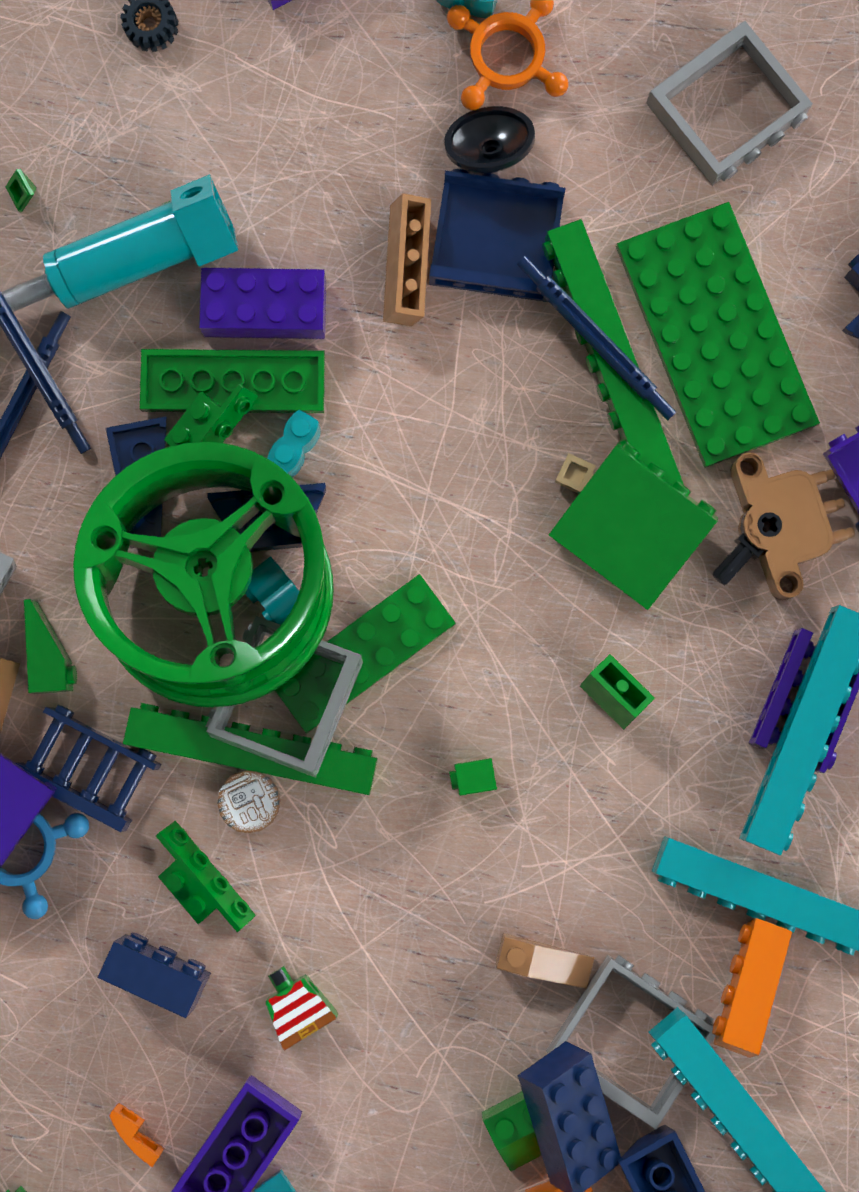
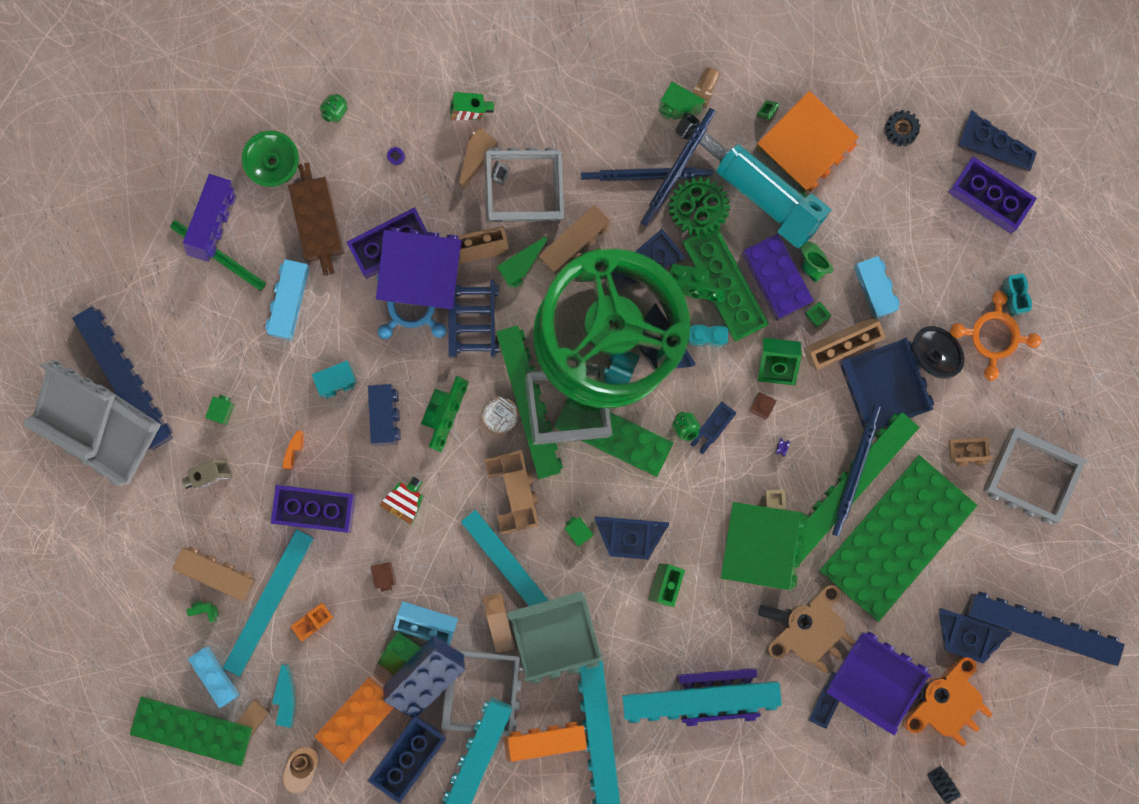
camera: 60 degrees right, 0 degrees up
(51, 557) = (575, 239): none -> medium nougat brick
(64, 1018) = (335, 379): none -> teal brick
(95, 158) = (808, 142): none -> orange panel
(126, 343) = (714, 214): none -> green gear
(271, 240) = (815, 262): none -> green piece
(347, 277) = (817, 314): none -> green tile
(352, 175) = (877, 287): none -> medium azure brick
(372, 833) = (518, 489): none -> medium nougat bracket
(384, 364) = (779, 361): none -> green slope
(390, 1097) = (383, 576): none -> copper brick
(405, 543) = (686, 426): none -> green head
(426, 503) = (714, 425): none -> dark blue hinge
(434, 421) = (762, 405): none -> copper brick
(490, 899) = (503, 559): none -> teal tile
(491, 1072) = (425, 623): none -> medium azure brick
(507, 425) = (782, 447): none -> dark purple bush
(521, 706) = (630, 537): none -> dark blue wing
(611, 891) = (555, 637): none -> sand green panel
(647, 170) = (969, 450): none -> medium nougat bracket

